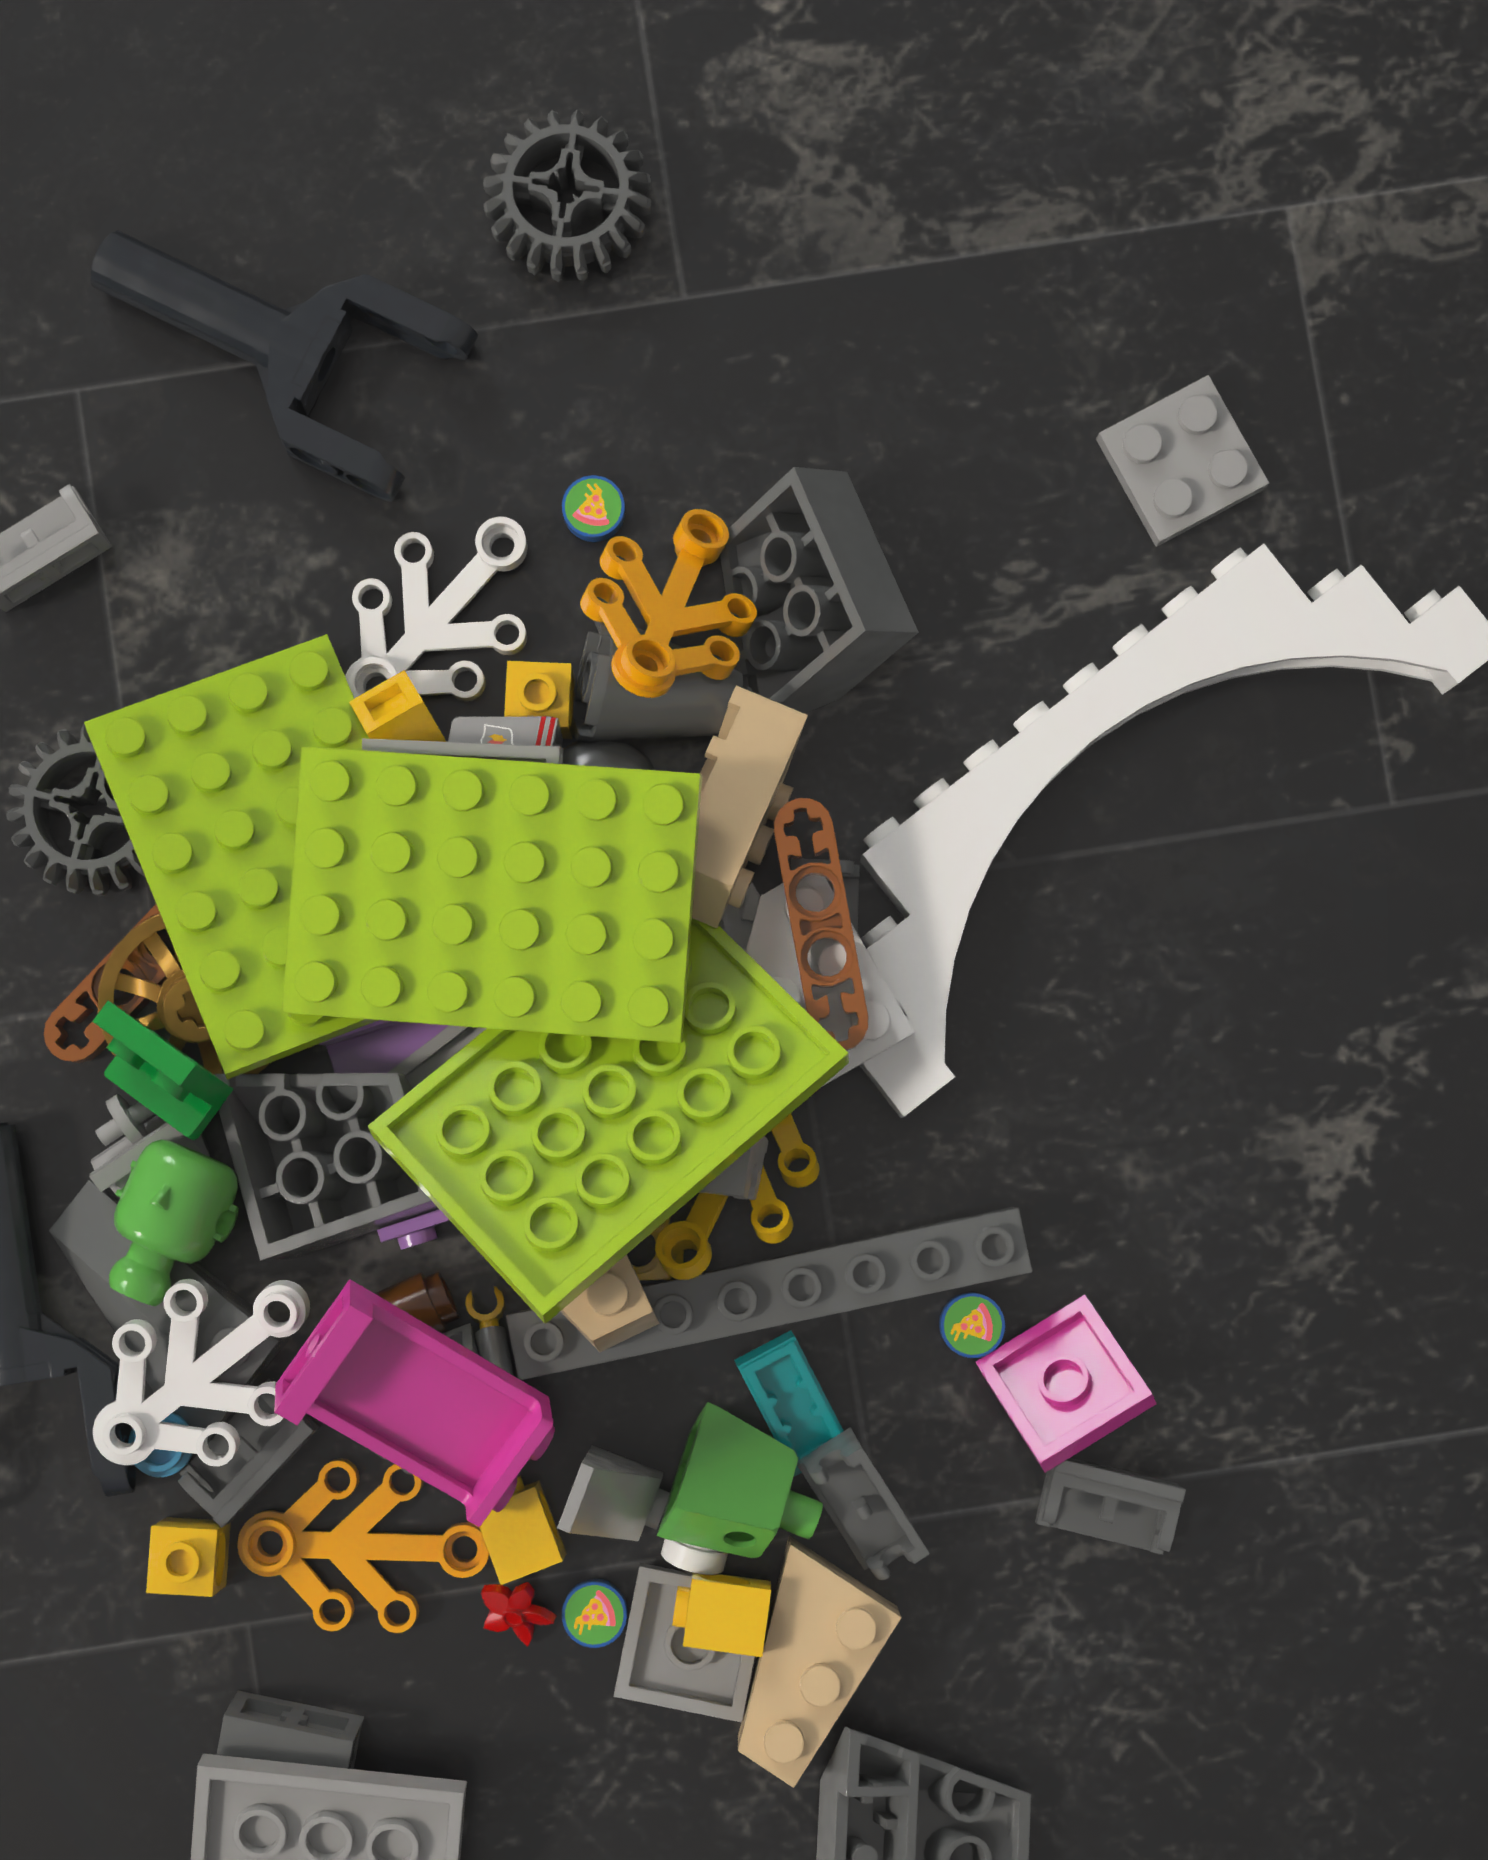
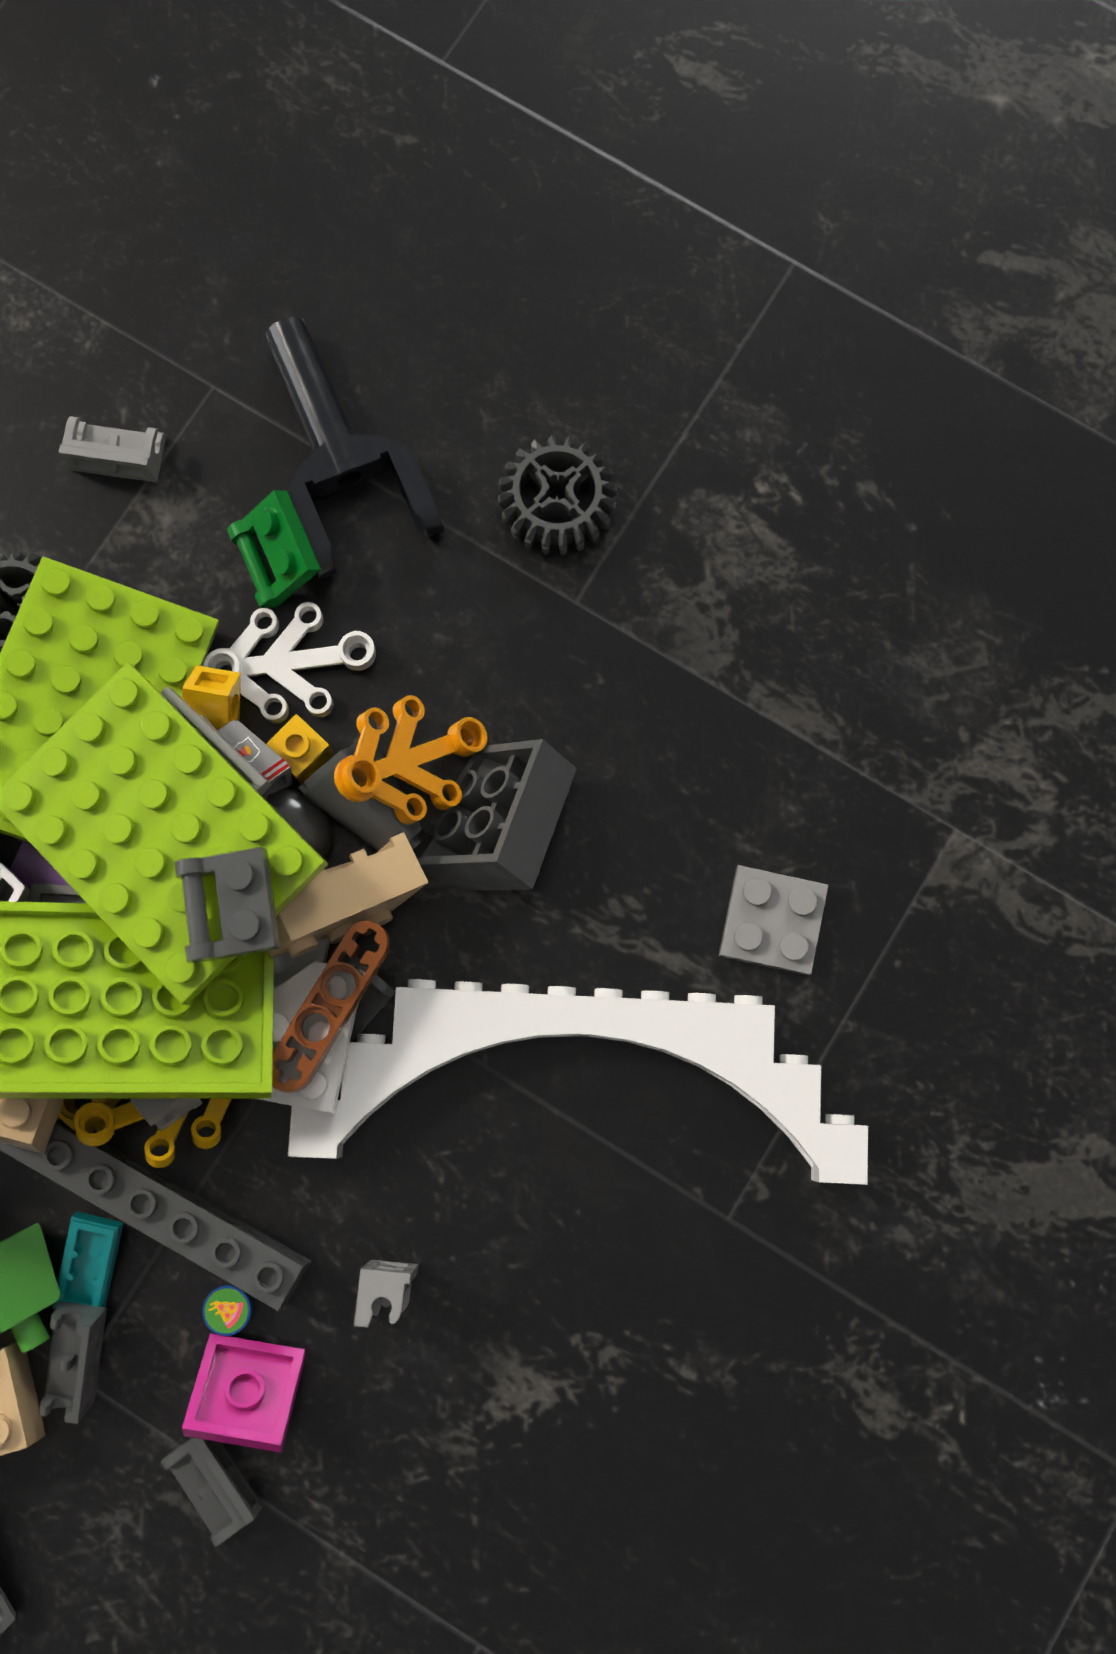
camera: 40 degrees right, 5 degrees down
(322, 493) = (284, 545): none -> green plate
(593, 508) = (424, 673): tile -> none
(657, 881) = (243, 900): none -> dark grey plate
(1115, 1157) = (383, 1285): none -> light grey hinge

